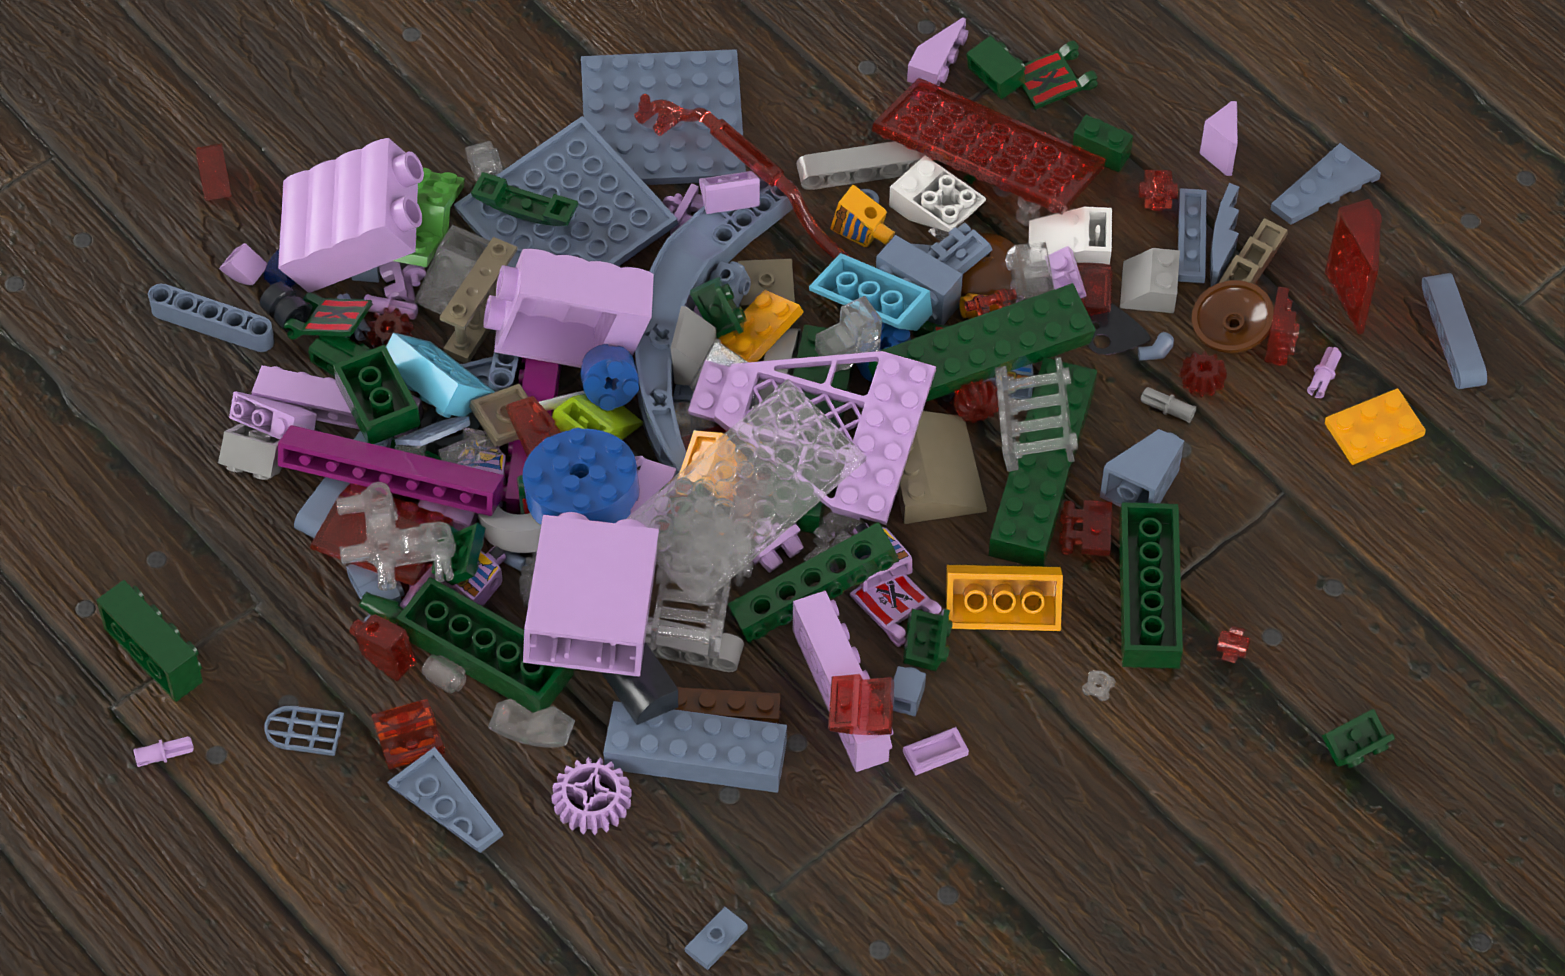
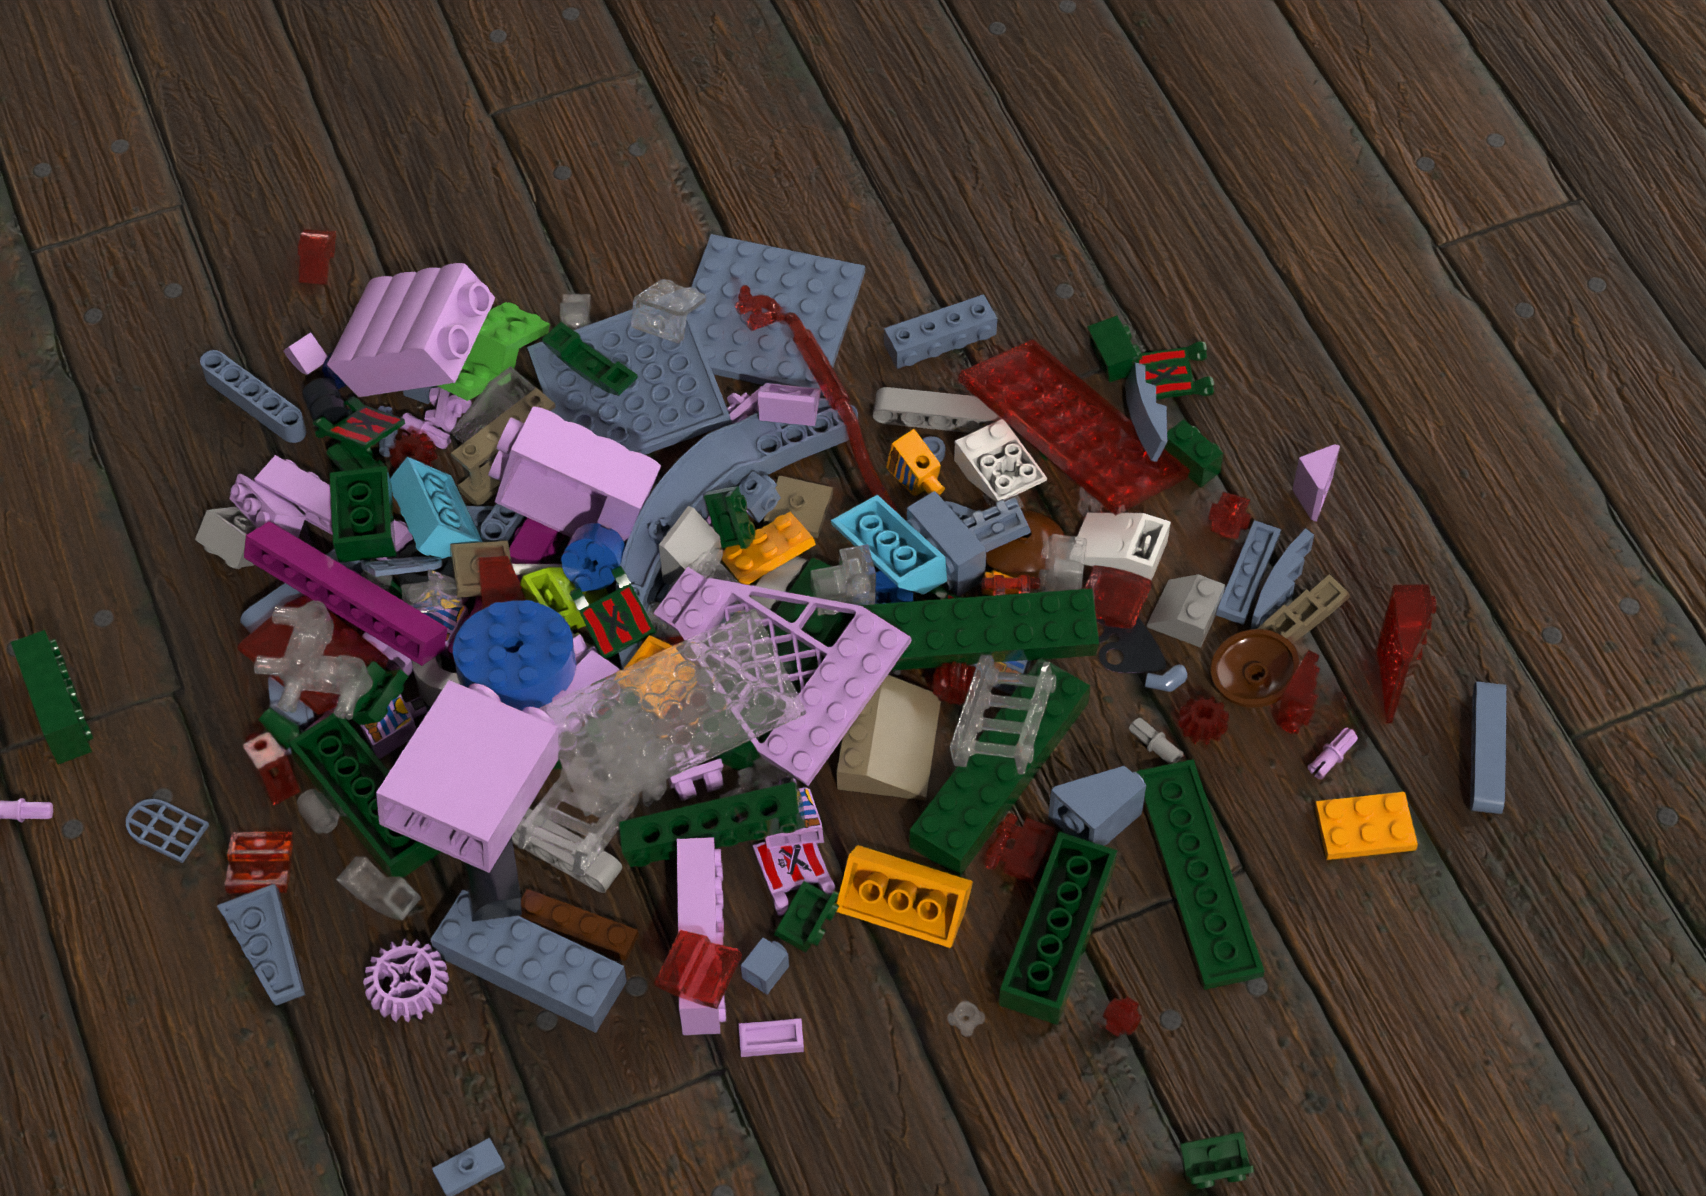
camera: 20 degrees right, 0 degrees up
(577, 135) = (664, 309): none -> clear bracket
(655, 425) = (615, 619): none -> flag
(831, 92) = (940, 331): none -> sand blue brick
(935, 55) = (1058, 321): lavender slope -> none
(1051, 120) = (1145, 413): none -> sand blue slope
(1065, 270) = (1099, 576): lavender plate -> none
(1252, 508) = (1200, 876): none -> dark green plate
(1324, 183) = (1409, 555): sand blue wing -> none

